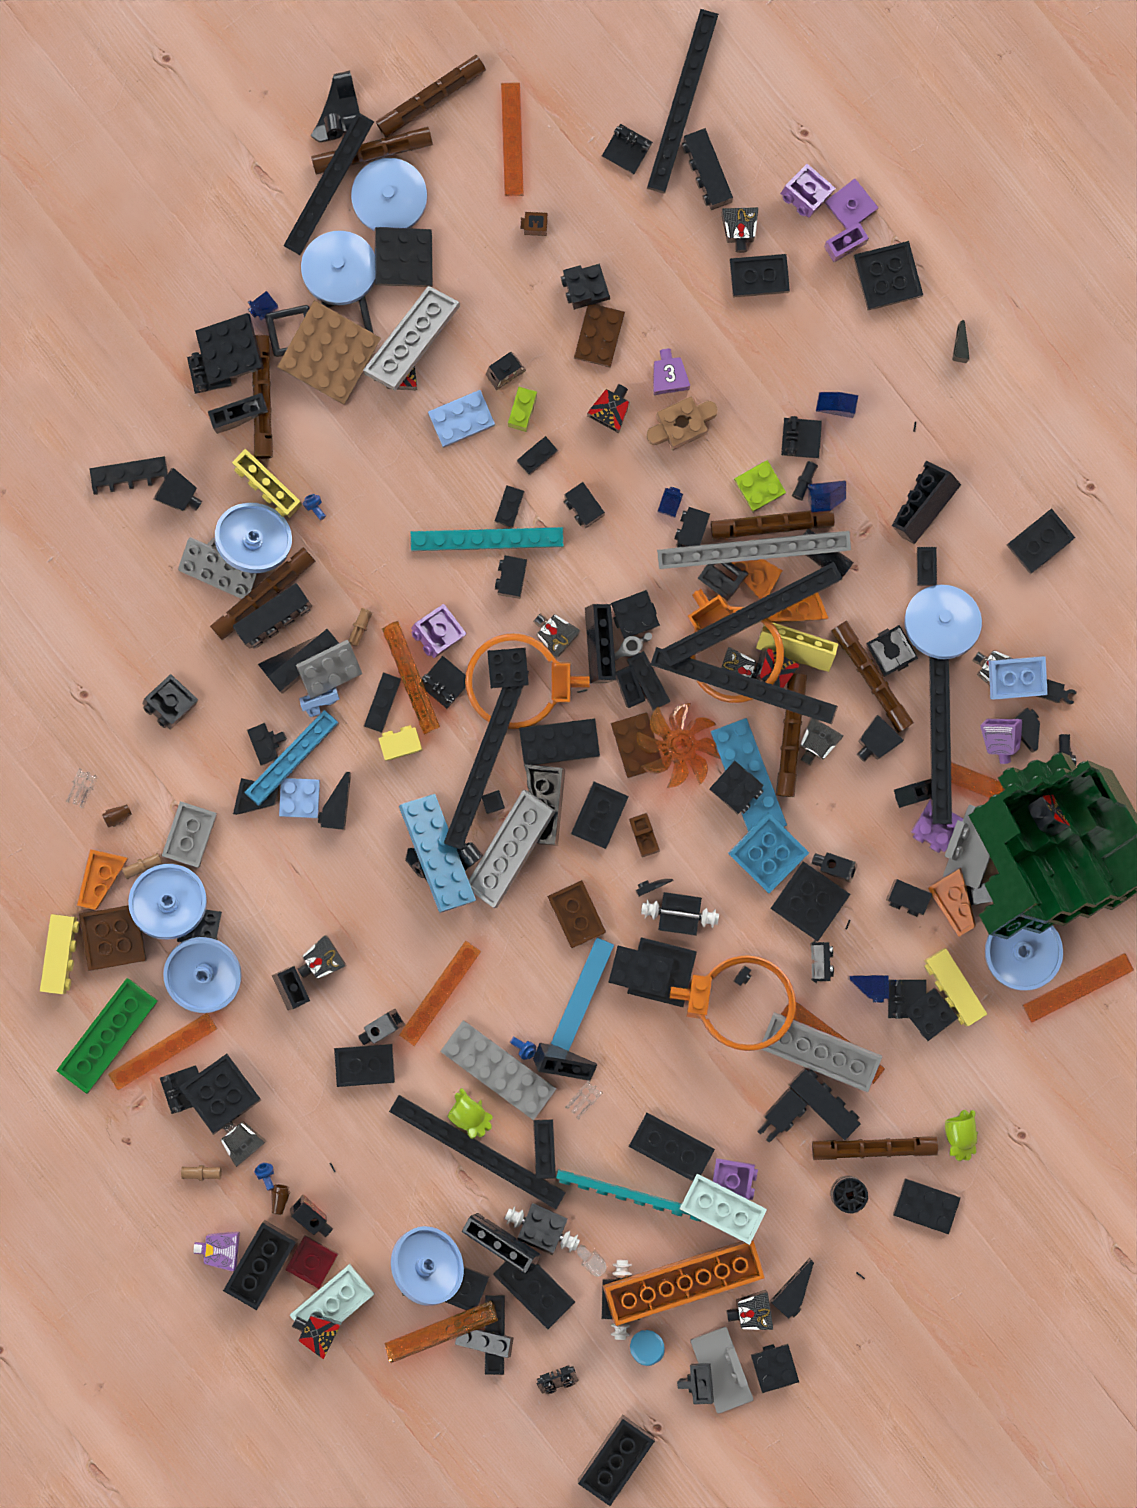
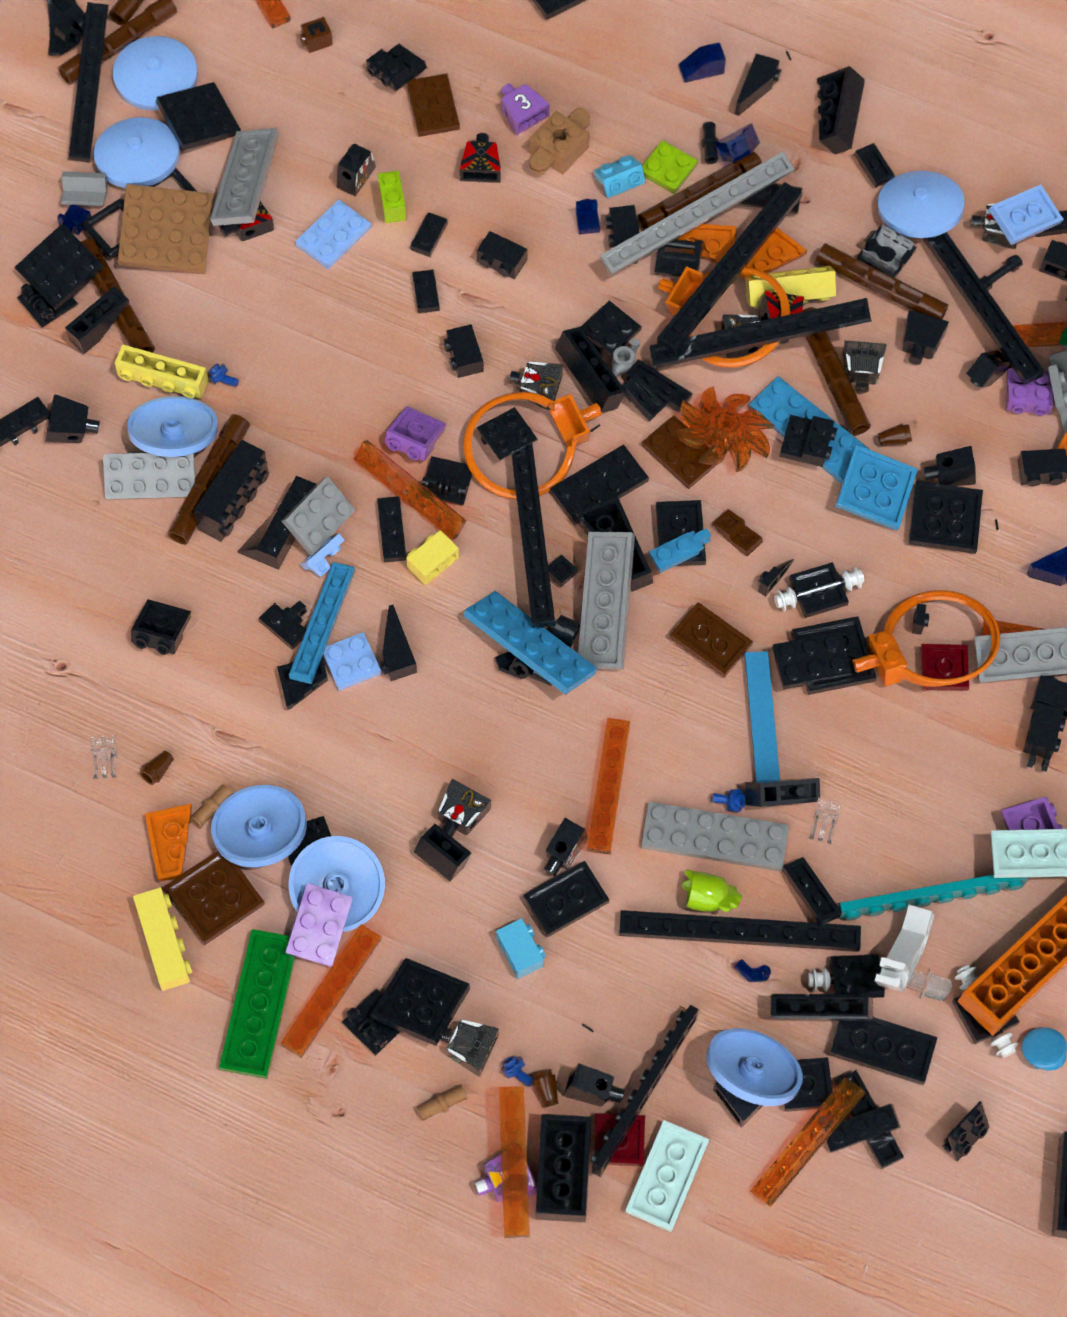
camera: 25 degrees left, 20 degrees down
(174, 1000) = (318, 925): none -> plate
(189, 834) = (248, 750): light grey plate -> none
(225, 1247) = (514, 1162): none -> clear orange plate
(281, 283) = (84, 188): none -> light grey panel
(312, 1087) = (520, 948): none -> medium azure brick
(317, 1333) = (669, 1209): torso -> none
(337, 1242) = (639, 1097): none -> black plate
(360, 626) = (329, 463): medium nougat axle -> none
(471, 1188) = (753, 974): none -> clear blue arm
(487, 539) = (418, 330): teal plate -> none
(583, 1233) = (906, 950): none -> white piece
(588, 831) = (679, 549): none -> dark azure hinge
(671, 1147) = (945, 826): black plate -> none
(716, 475) = (620, 175): none -> medium azure bracket
(740, 1022) = (945, 662): none -> dark red plate
(801, 437) = (683, 108): black hinge -> none
(809, 814) = (896, 435): none -> reddish brown cone
(821, 953) = (995, 561): piece -> none
(875, 442) = (759, 81): none -> black slope
(987, 709) = (1012, 264): none -> black bar
(1002, 737) = (1044, 277): medium lavender torso -> none
(1040, 541) = (971, 97): black plate -> none

